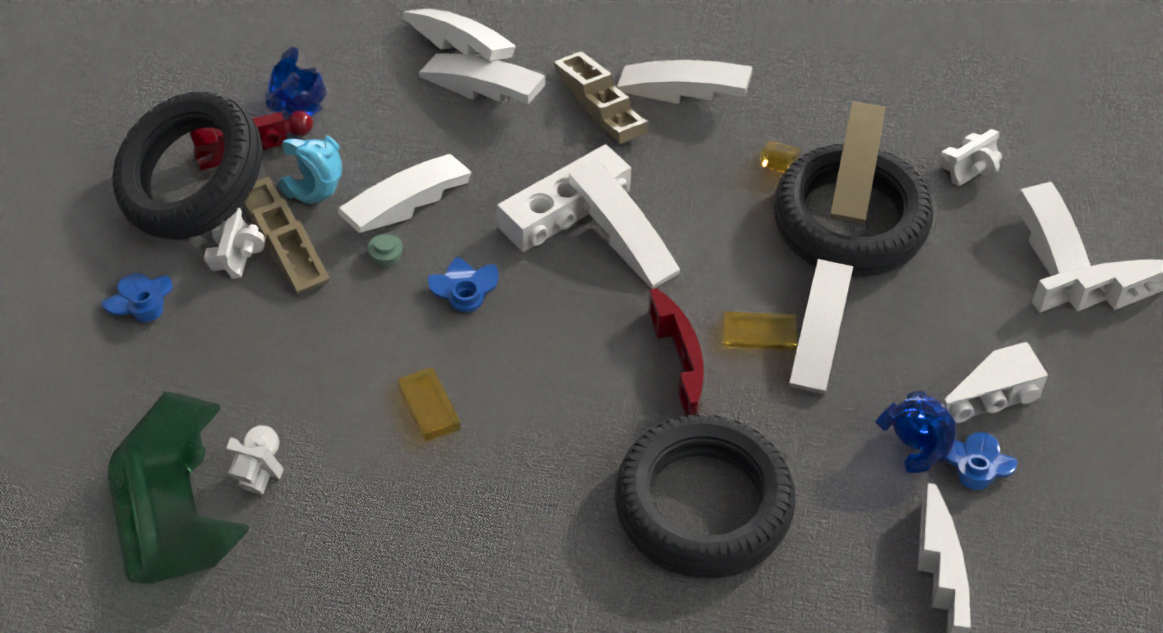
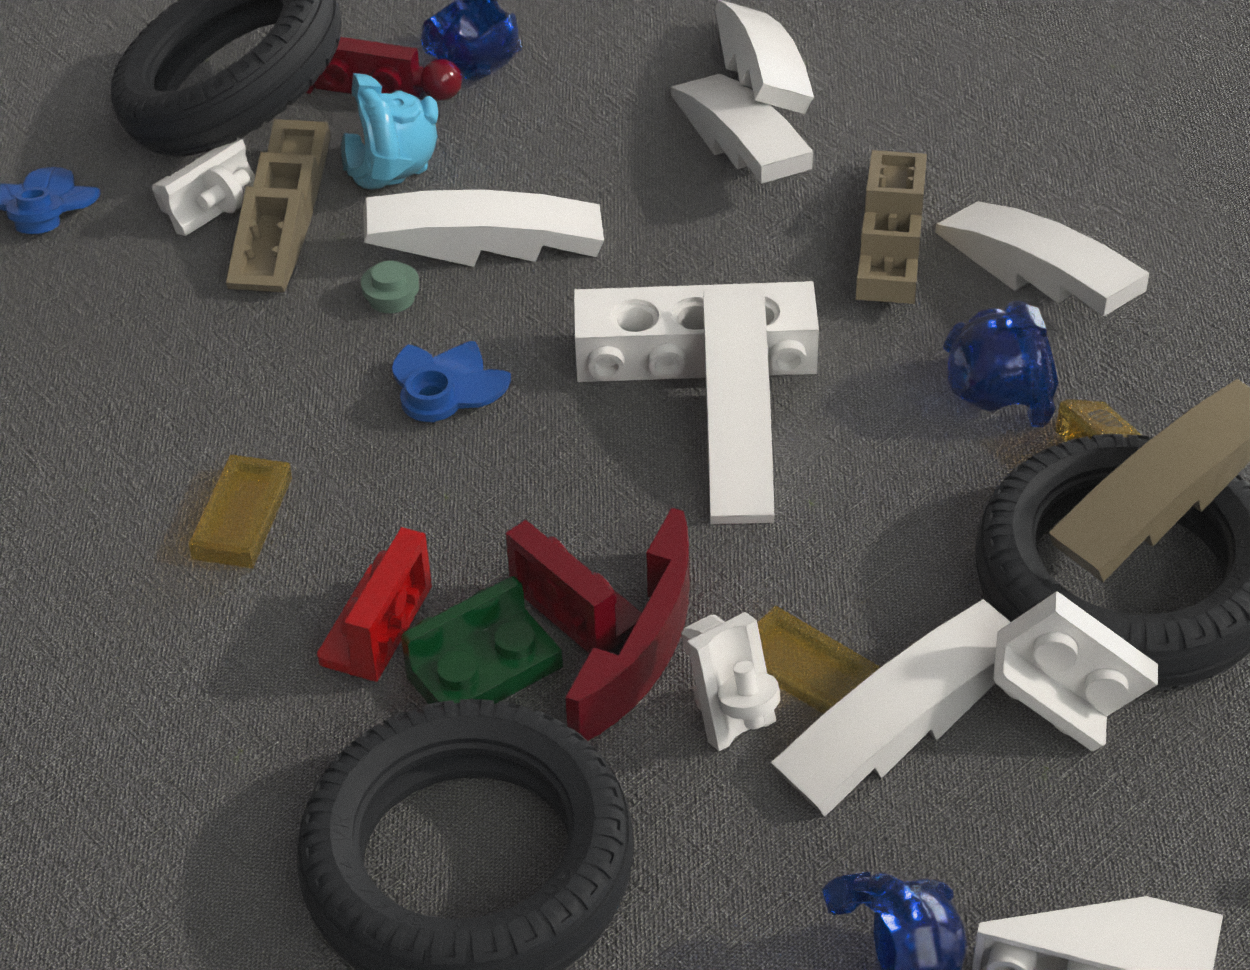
camera: 40 degrees right, 5 degrees down
(555, 413) = (380, 609): none -> red bracket
(617, 409) = (480, 648): none -> dark green bracket
(634, 355) = (567, 591): none -> dark red bracket
(723, 140) = (1004, 361): none -> clear blue helmet
(749, 353) = (730, 677): none -> white hips
(880, 269) = (1070, 668): none -> white bracket

